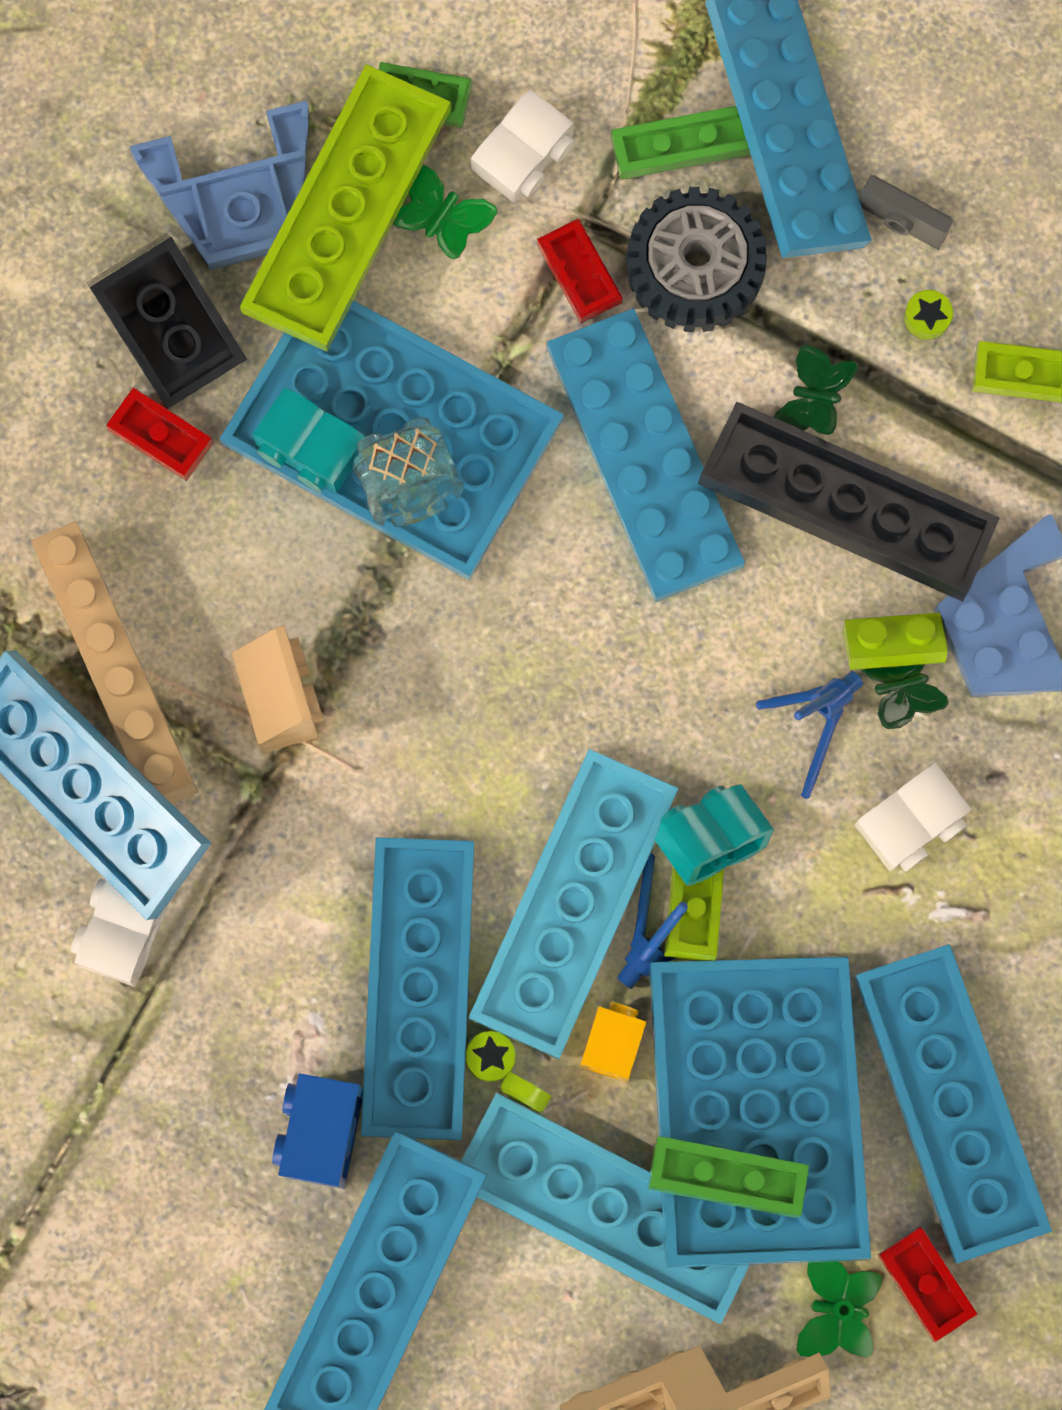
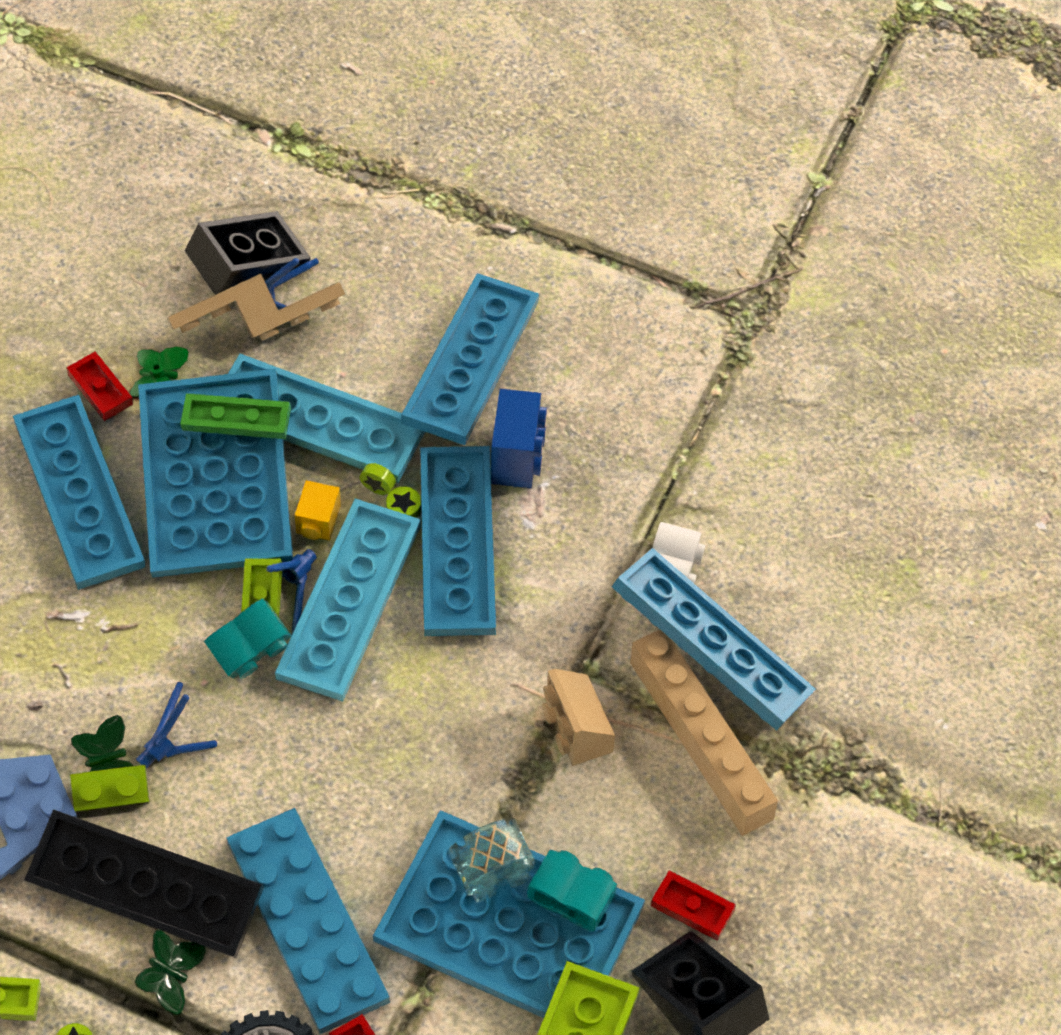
camera: 175 degrees right, 20 degrees down
(913, 818) = (99, 665): white brick -> none

